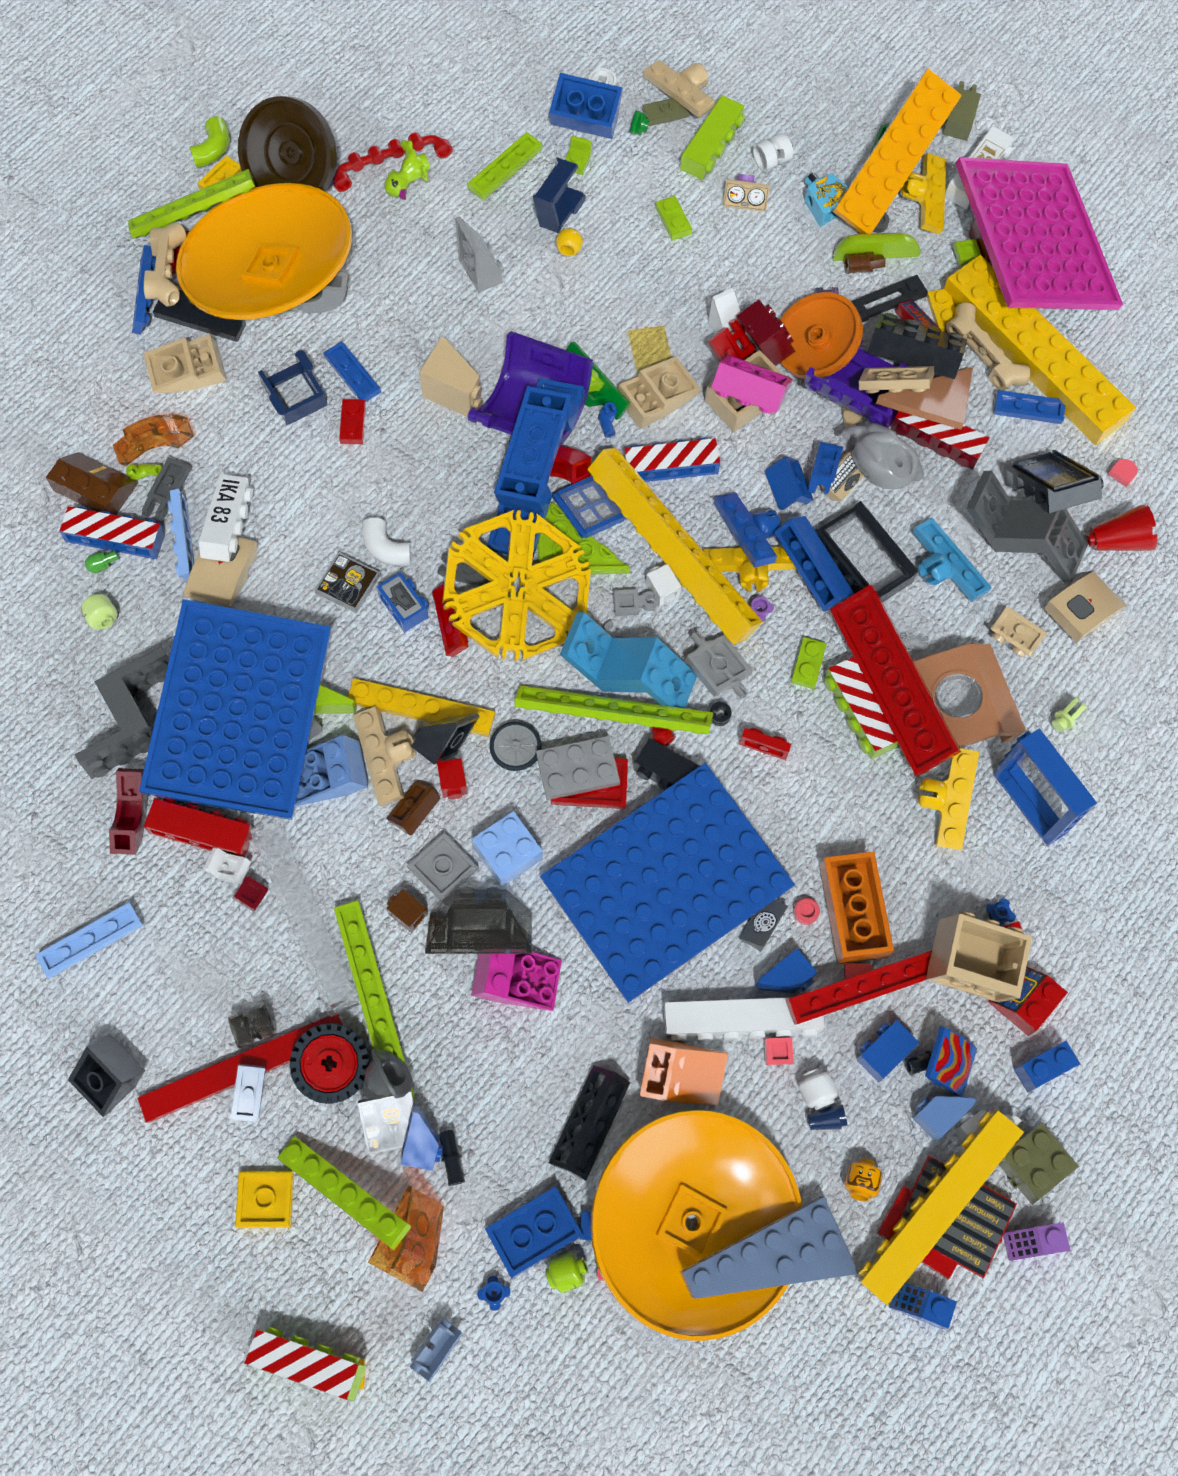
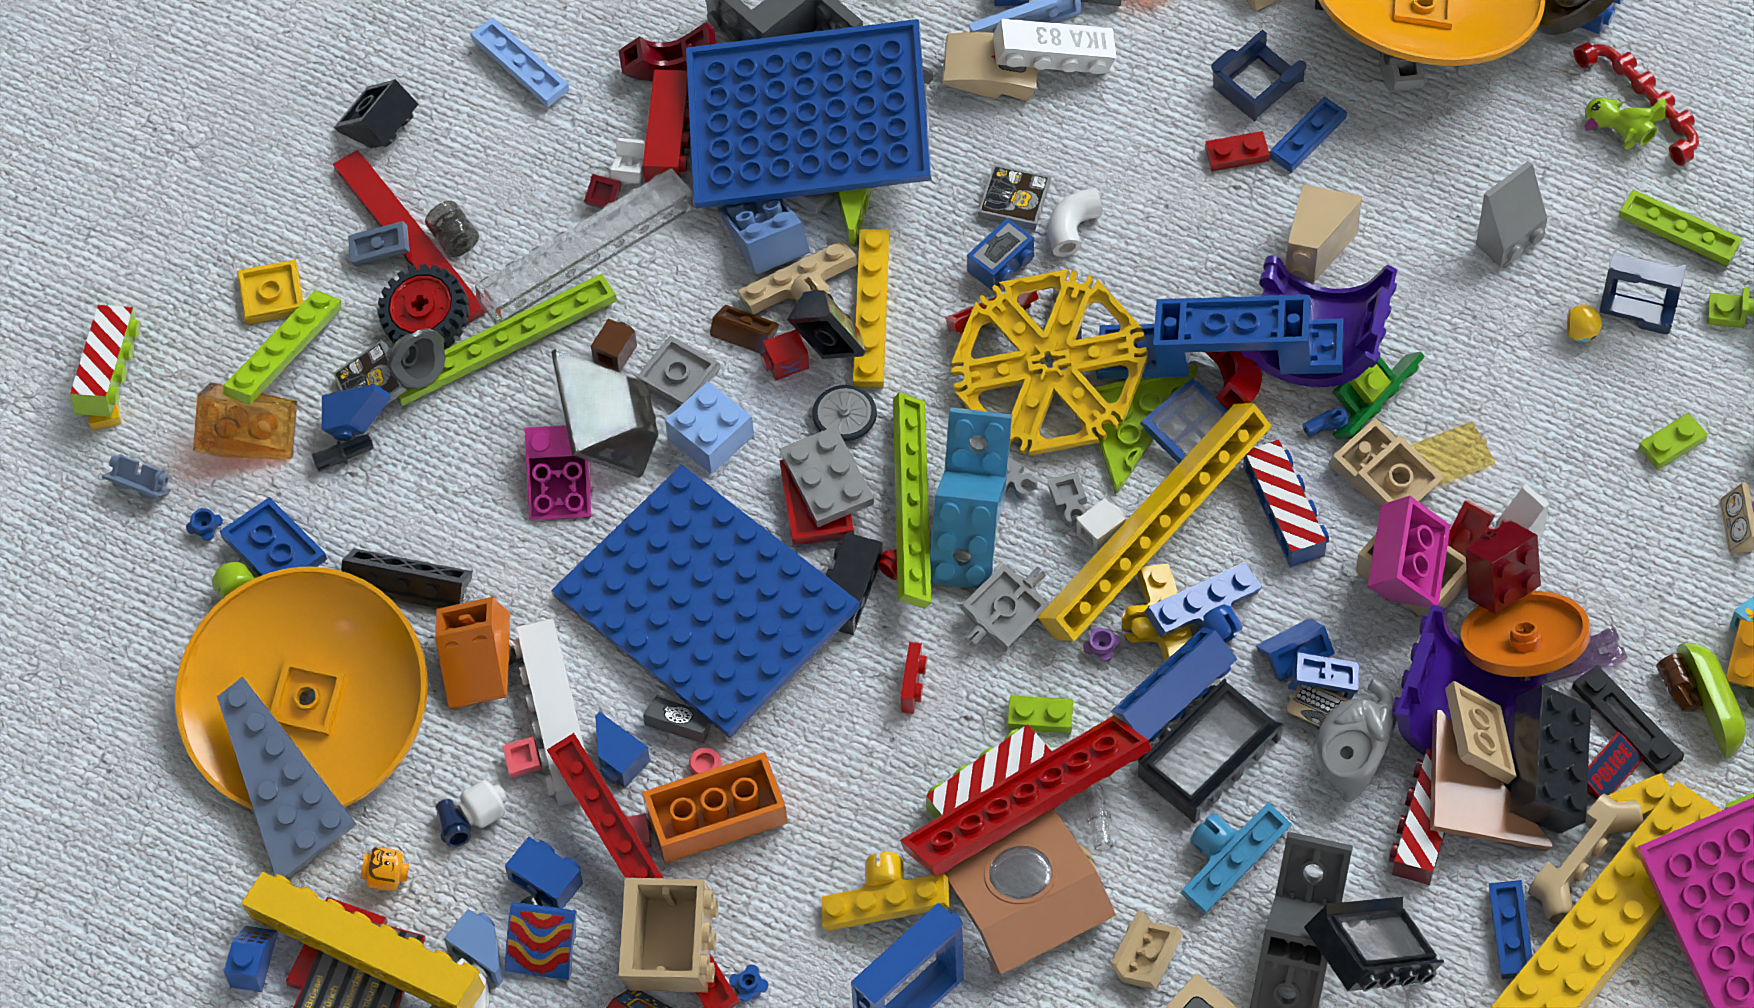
camera: 85 degrees right, 10 degrees down
(723, 720) = (935, 619): black bush -> none

